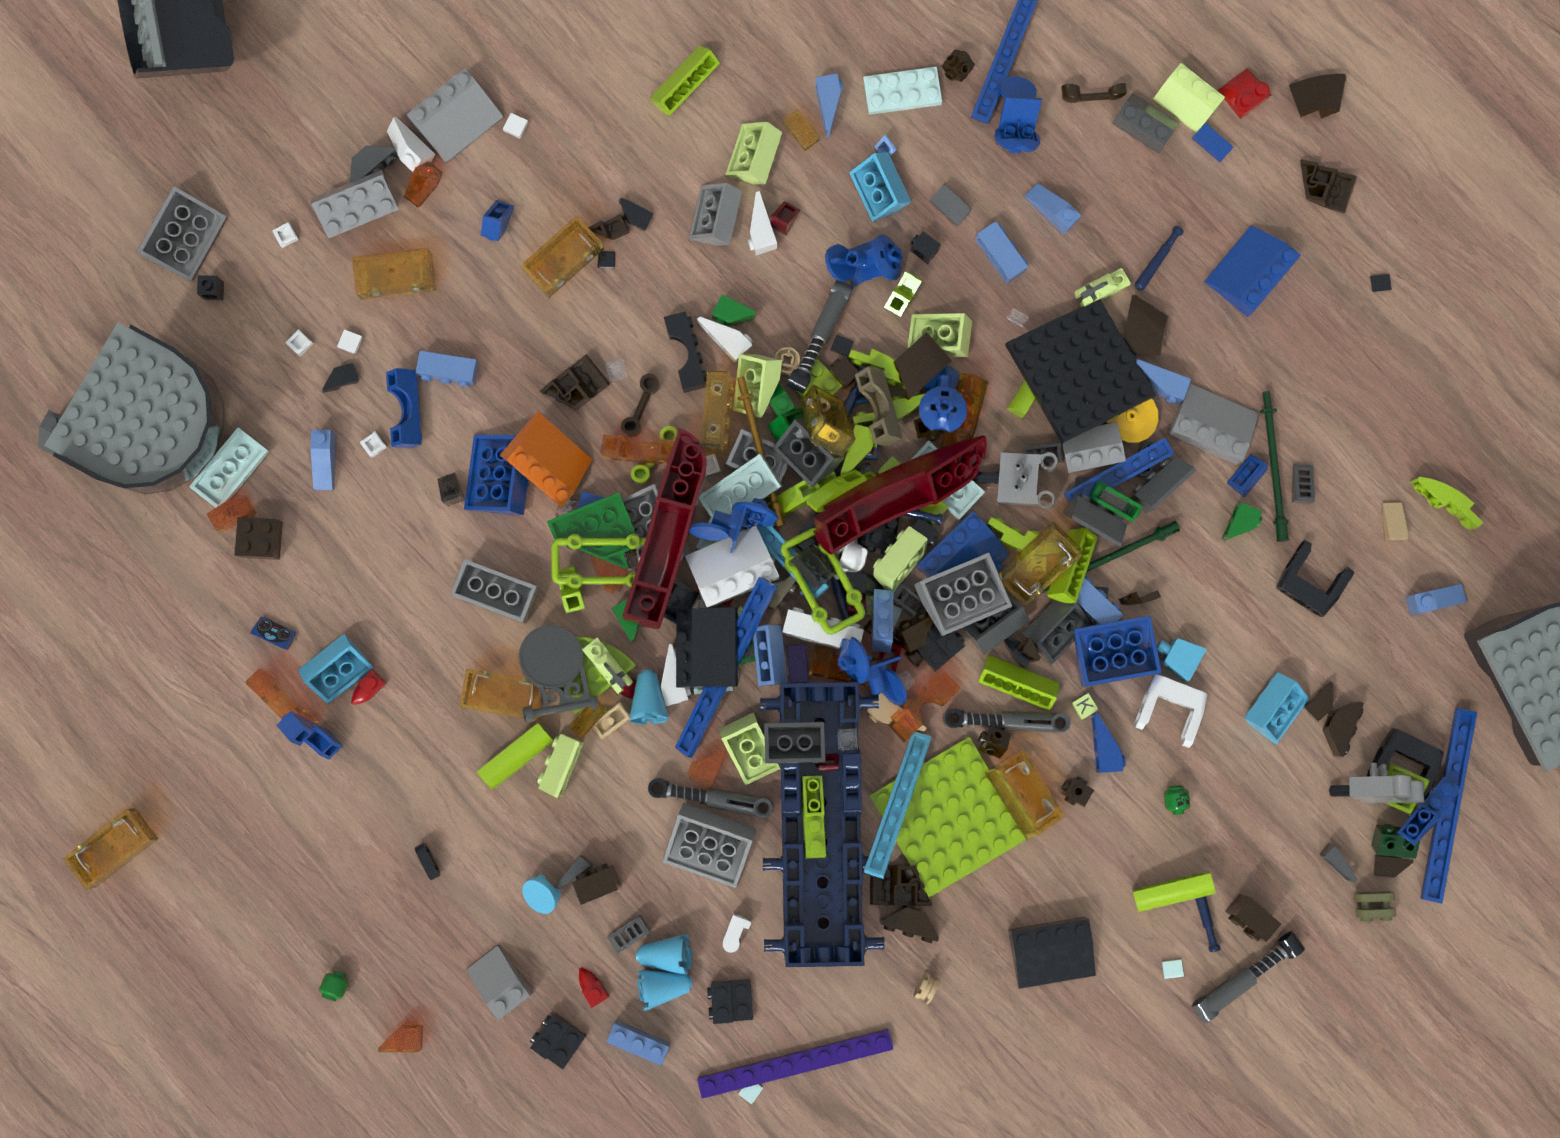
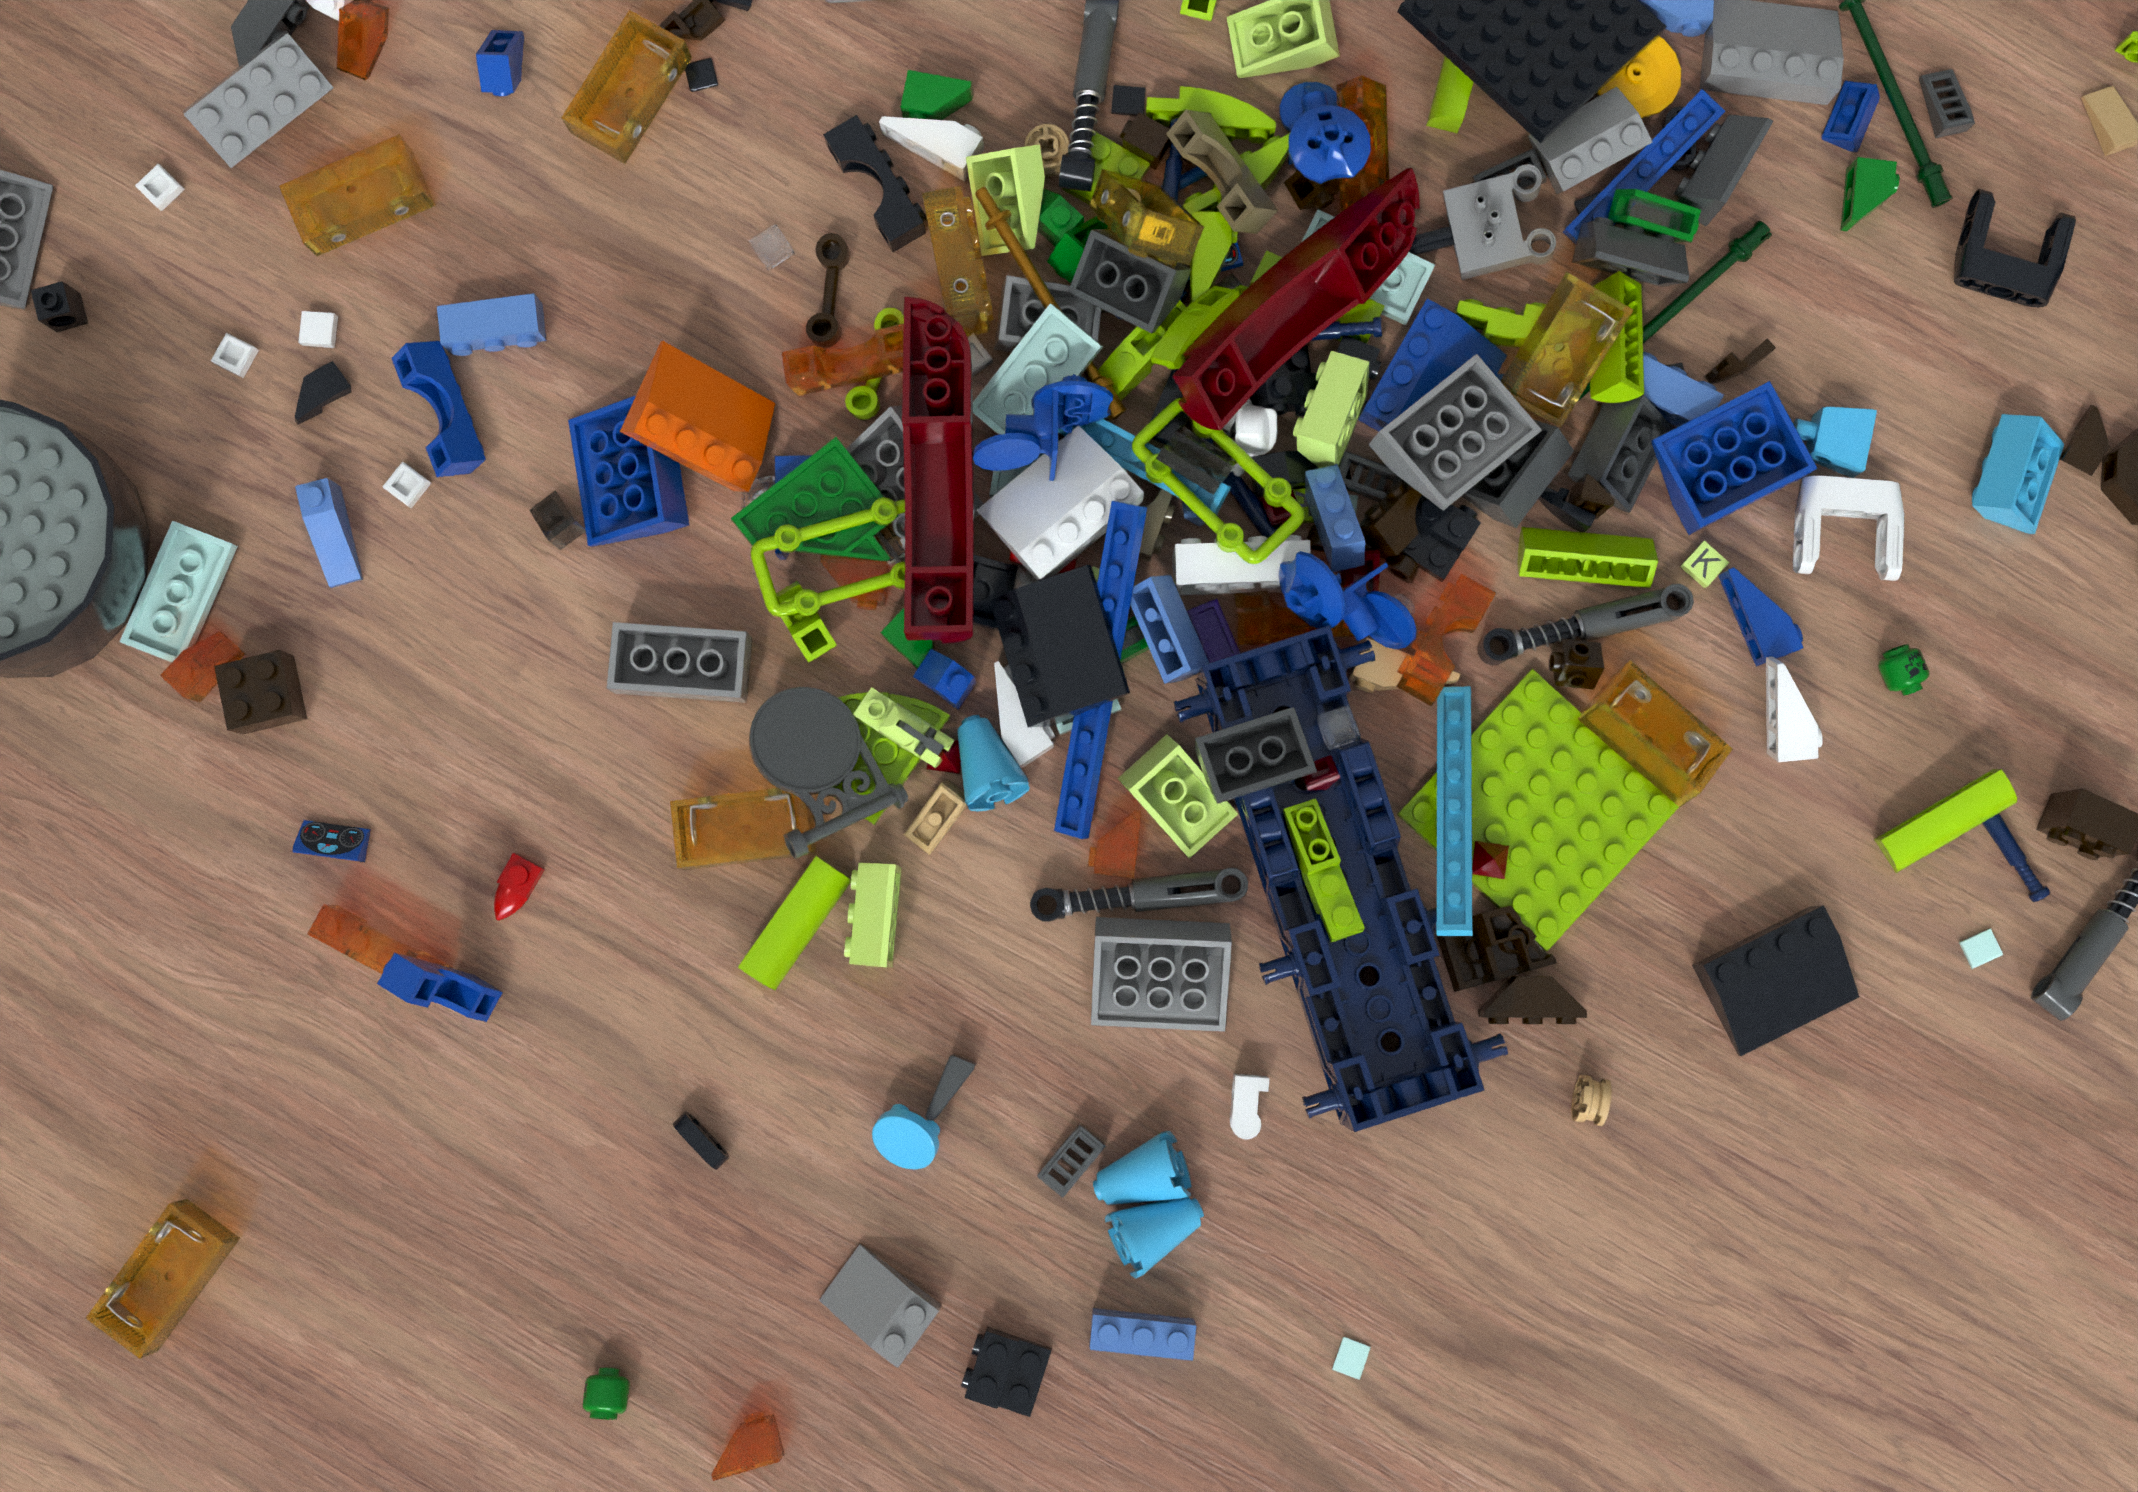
camera: 10 degrees left, 0 degrees up
(335, 668) = (452, 869): medium azure slope -> none
(577, 384) = (713, 287): dark brown slope -> none
(587, 720) = (896, 828): clear yellow plate -> none
(591, 987) = (1036, 1267): red plate -> none
(596, 884) = (993, 1093): dark brown brick -> none
(639, 645) = (945, 678): none -> blue slope
(730, 1001) = (1273, 1220): black plate -> none
(794, 1063) = (1411, 1290): dark purple plate -> none
(911, 837) = (1489, 859): none -> slope
(920, 364) = (1268, 85): dark brown slope -> none
(1083, 791) = (1737, 705): dark brown brick -> none
(1102, 812) = (1789, 723): none -> white slope

